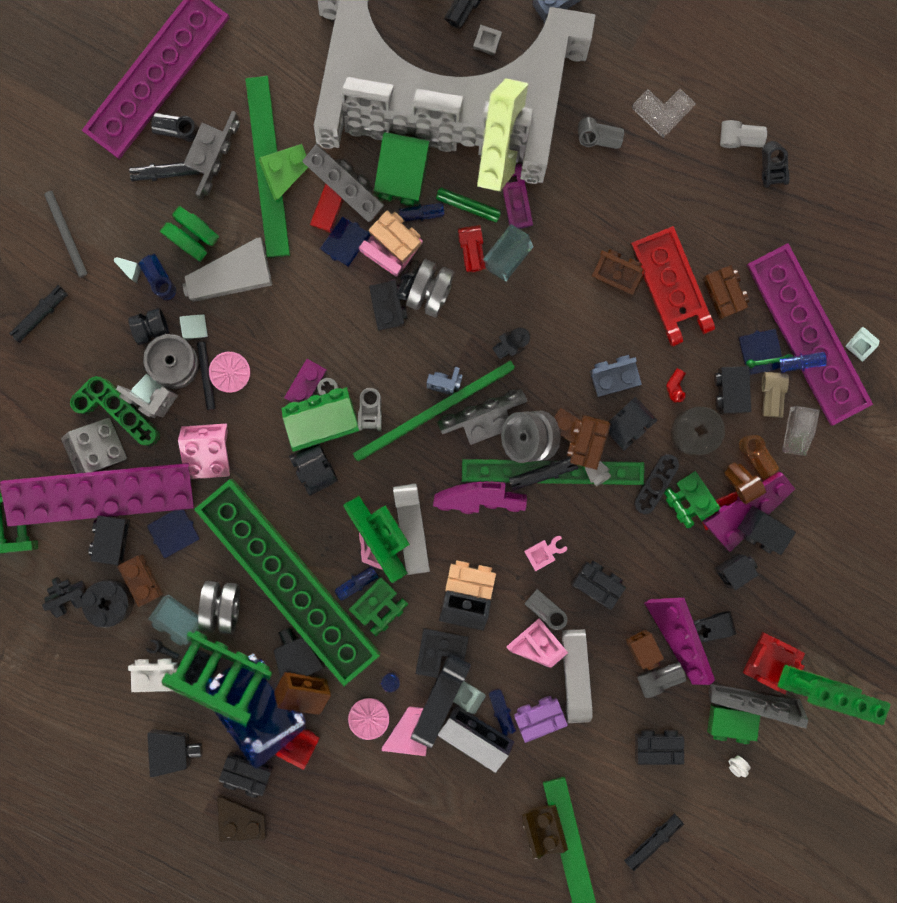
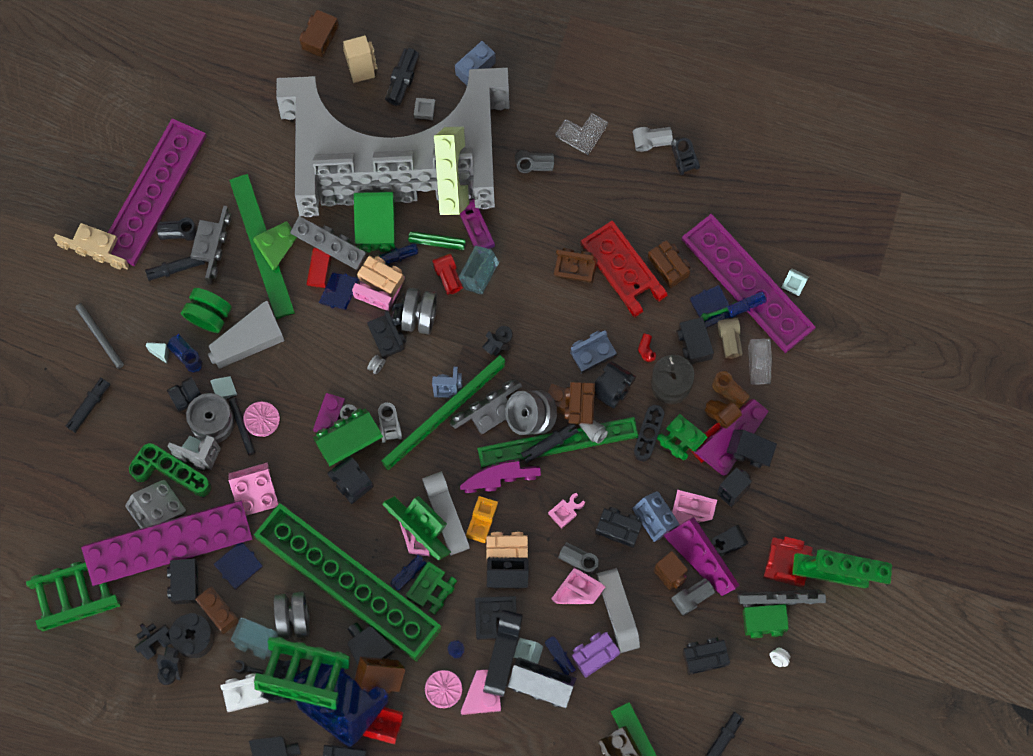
camera: 10 degrees left, 15 degrees down
(75, 634) = (169, 666): none -> black hips
(78, 122) = (93, 243): none -> tan bracket
(369, 338) = (376, 364): none -> light grey bush
(449, 541) = (481, 519): none -> light orange slope
(641, 581) = (655, 516): none -> sand blue bracket
(682, 581) = (692, 505): none -> bright pink wing

